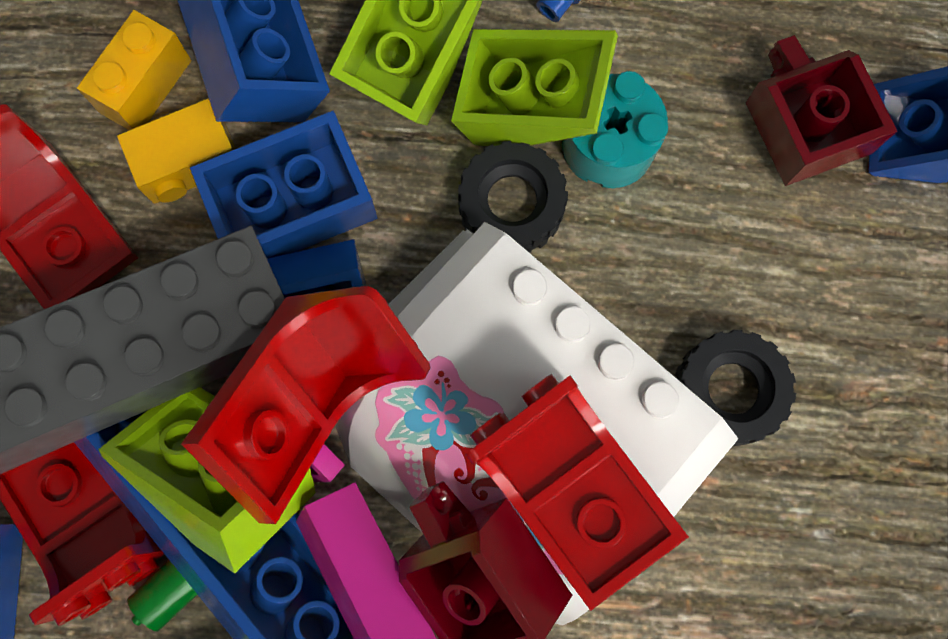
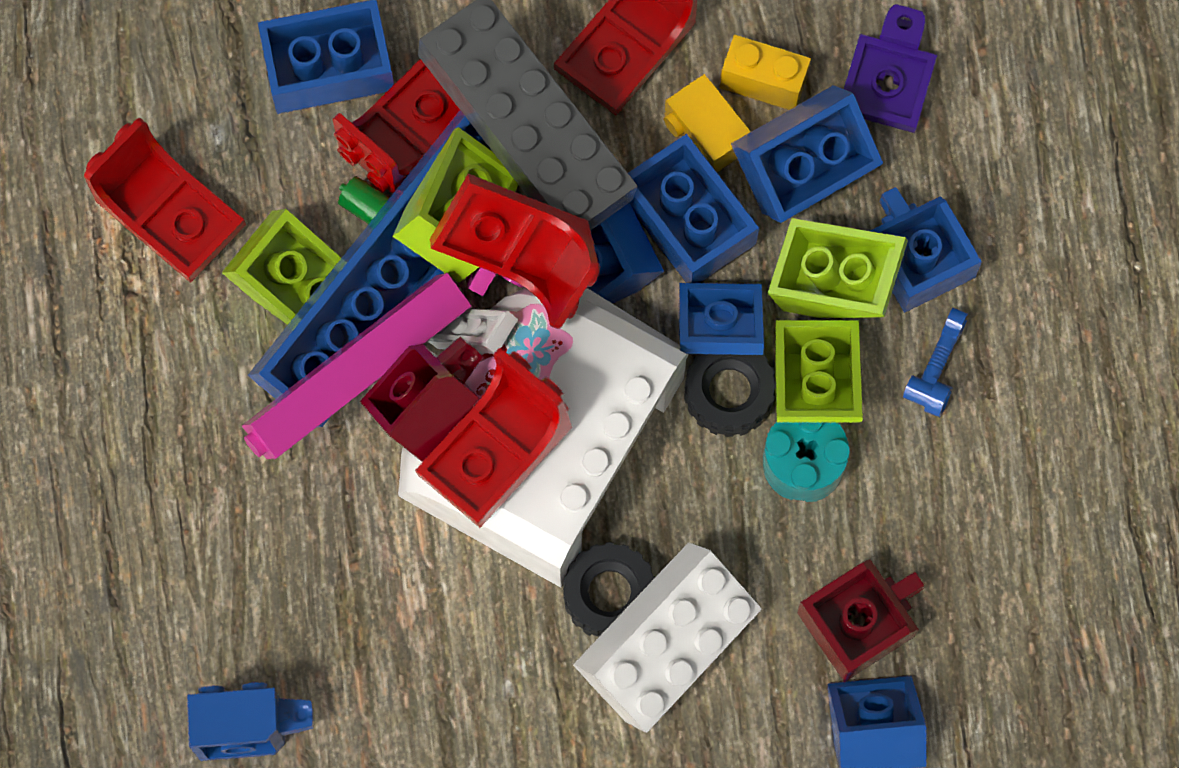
camera: 80 degrees right, 5 degrees down
(393, 474) = (480, 327): none -> white tile
(434, 184) = (721, 319): none -> blue plate
(819, 332) = (667, 636): none -> white brick

